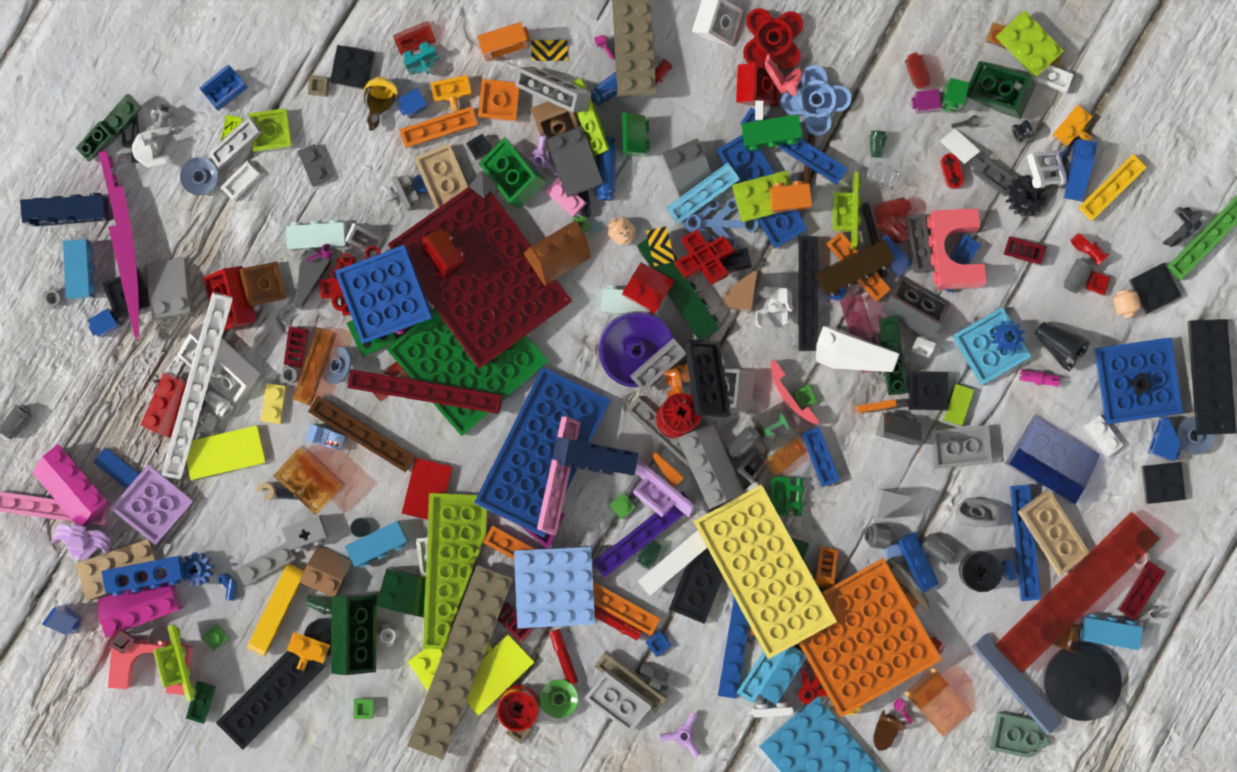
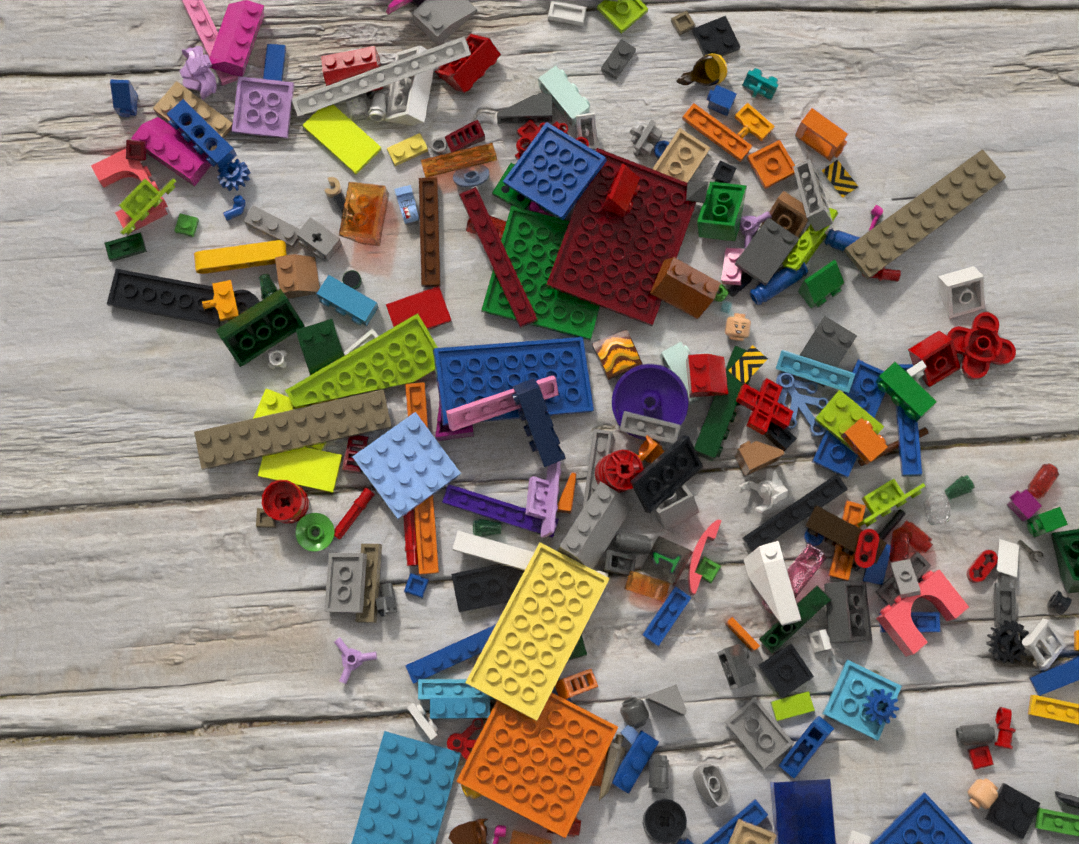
camera: 55 degrees right, 10 degrees down
(263, 284) = (497, 78): dark orange plate -> none
(323, 253) = (555, 107): magenta hand -> none
(363, 708) = (203, 378): bright green plate -> none
(412, 38) = (773, 68): clear red slope -> none
(576, 347) = (617, 354): none -> slope
(622, 505) = (512, 478): bright green plate -> none
(780, 495) = (611, 604): green plate -> none
(783, 83) = (951, 375): coral hair -> none
(830, 98) = (967, 405): light blue plant -> none
(878, 260) = (866, 548): none -> red plate
(922, 244) = (905, 578): none -> light grey plate
(997, 416) = (806, 746): none -> blue slope
(1034, 246) = (955, 677): dark red slope -> none
(1039, 377) = (864, 761): dark pink pin -> none
(1062, 344) = (908, 761): black cone -> none

